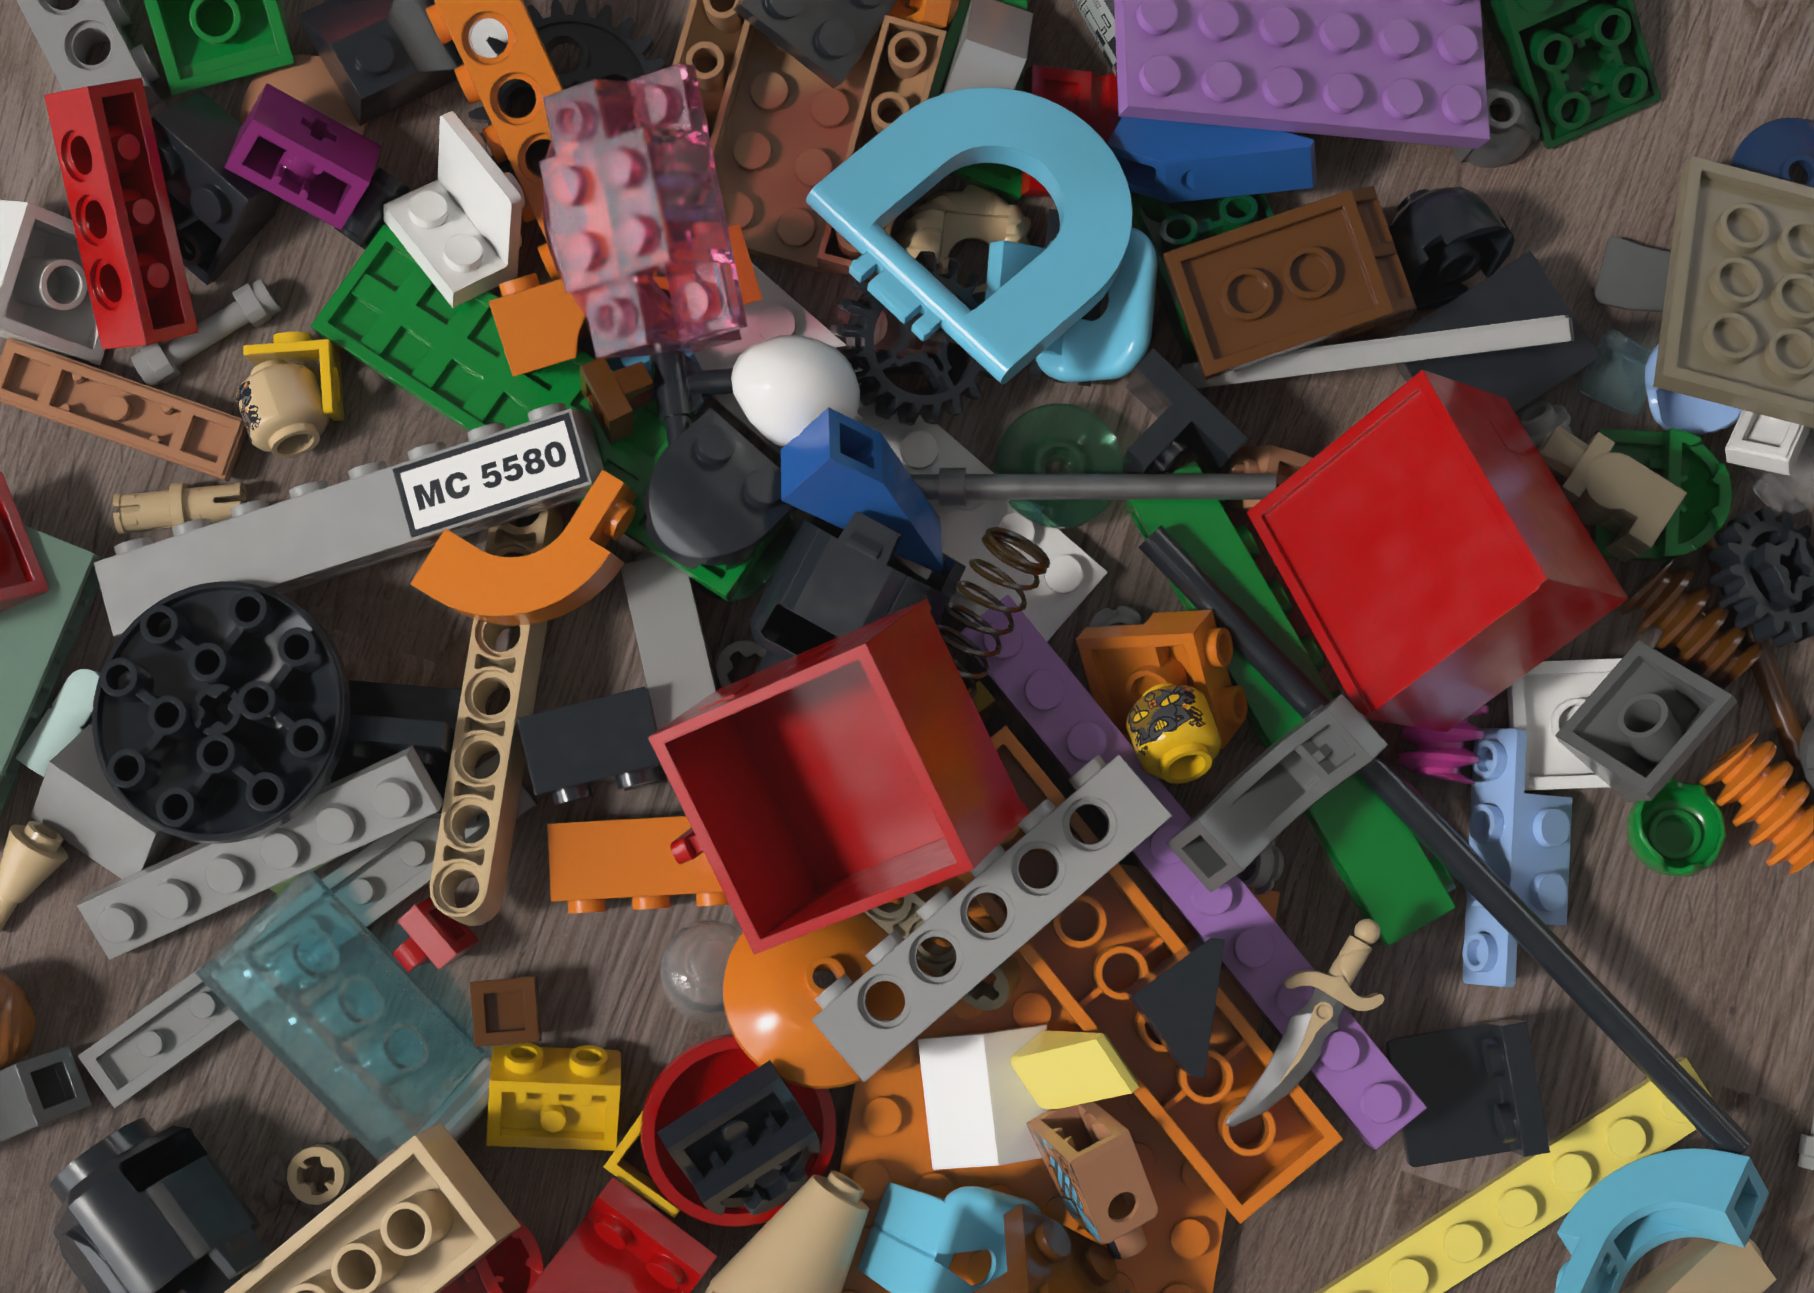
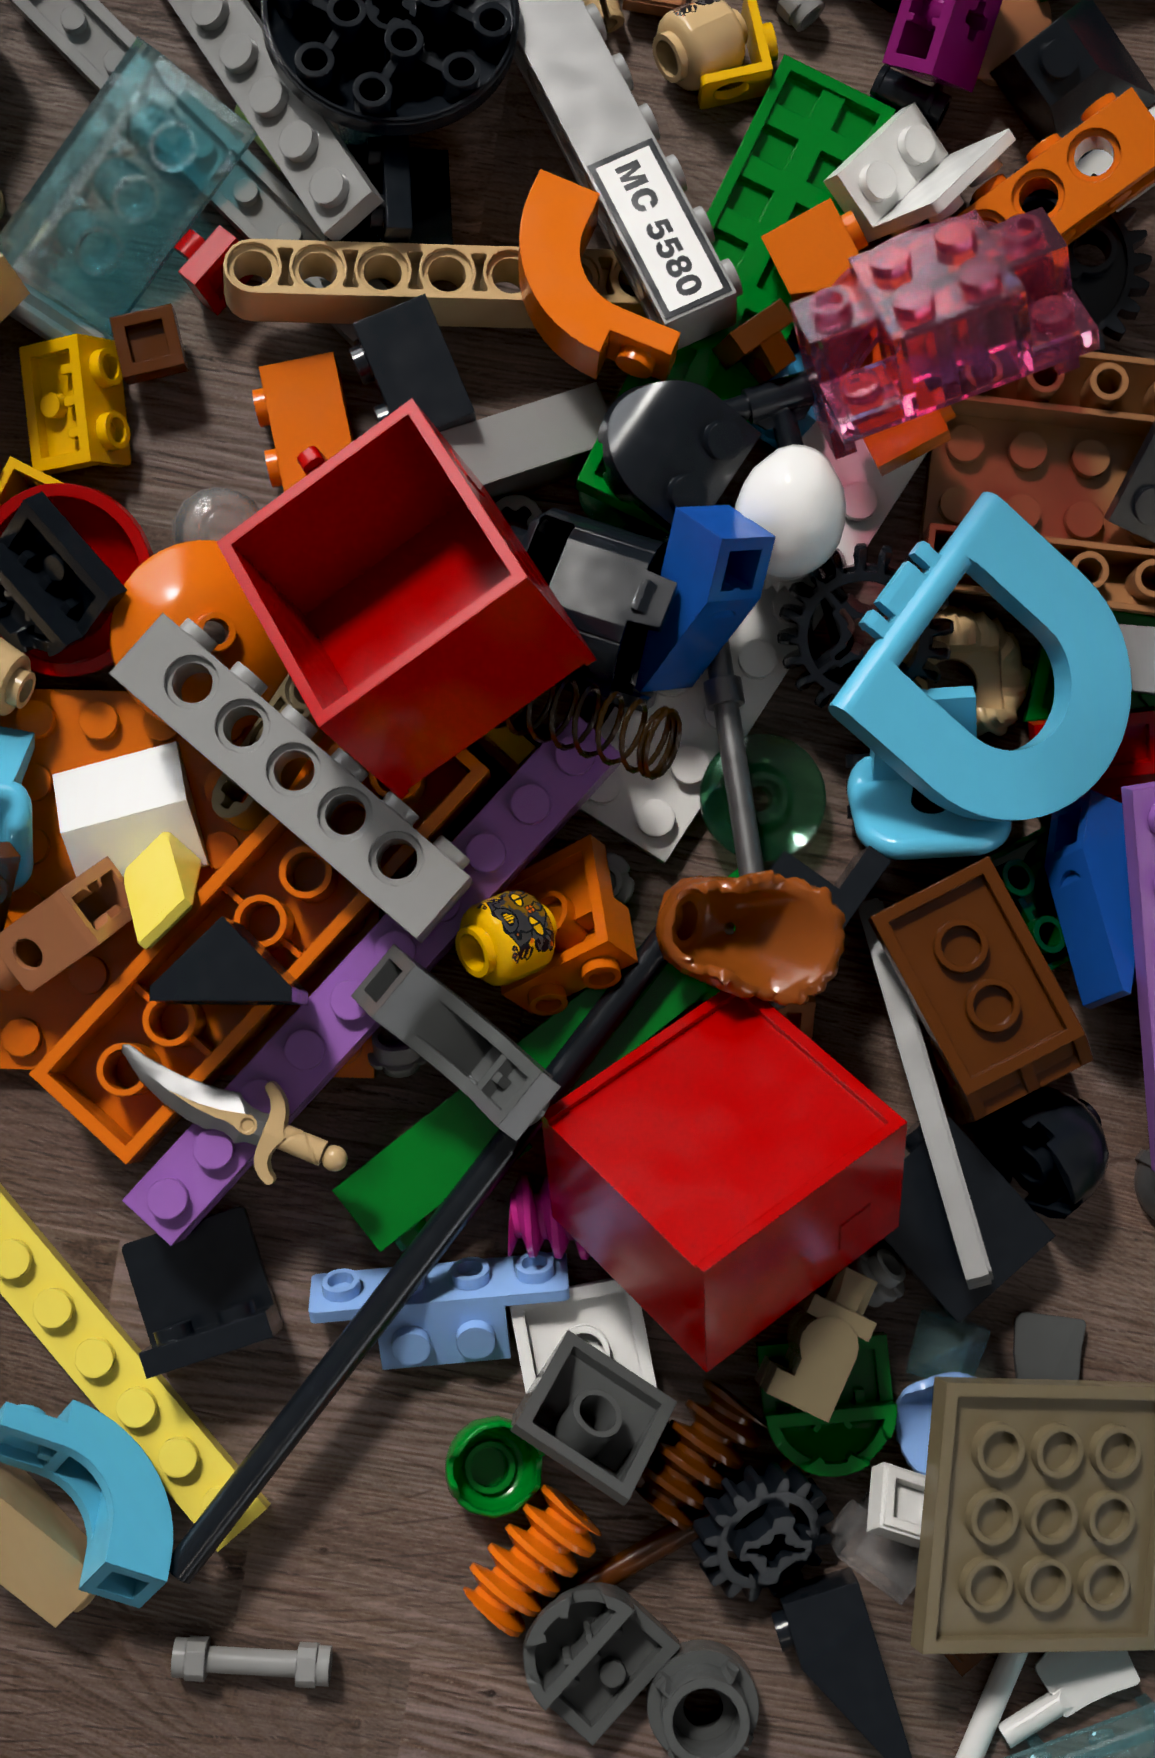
camera: 80 degrees right, 0 degrees up
(1226, 469) = (782, 939): none -> dark orange piece

